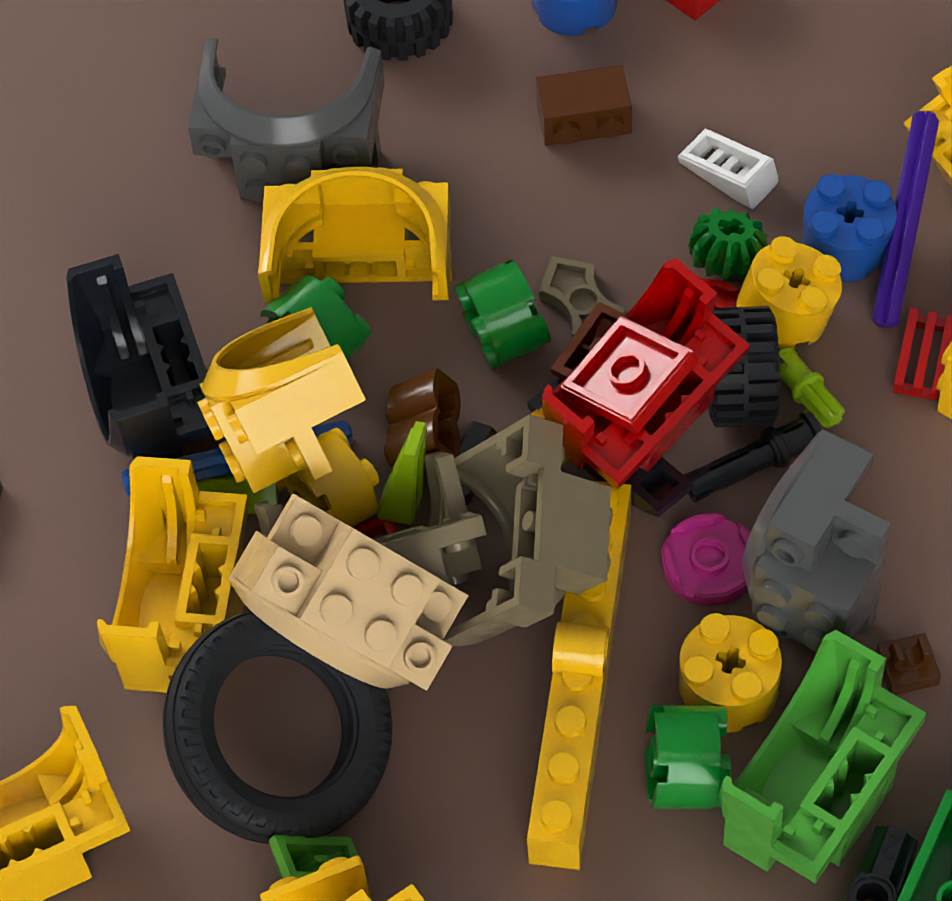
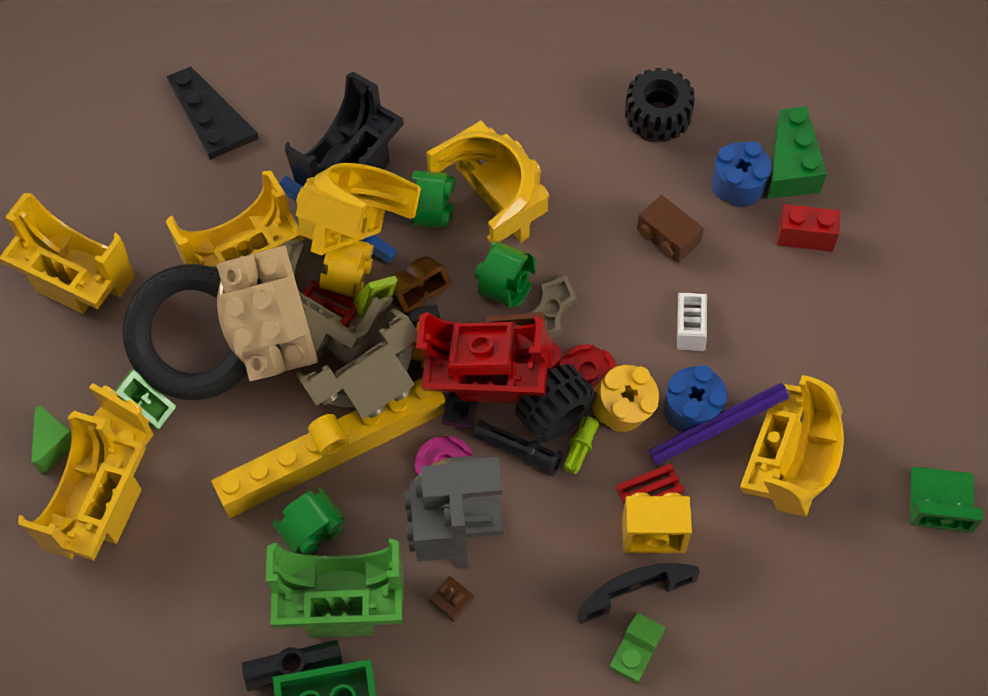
camera: 50 degrees right, 5 degrees up
(286, 147) = (525, 116): dark grey piece -> none
(726, 243) = (636, 348): green gear -> none
(731, 666) = (374, 498): yellow brick -> none

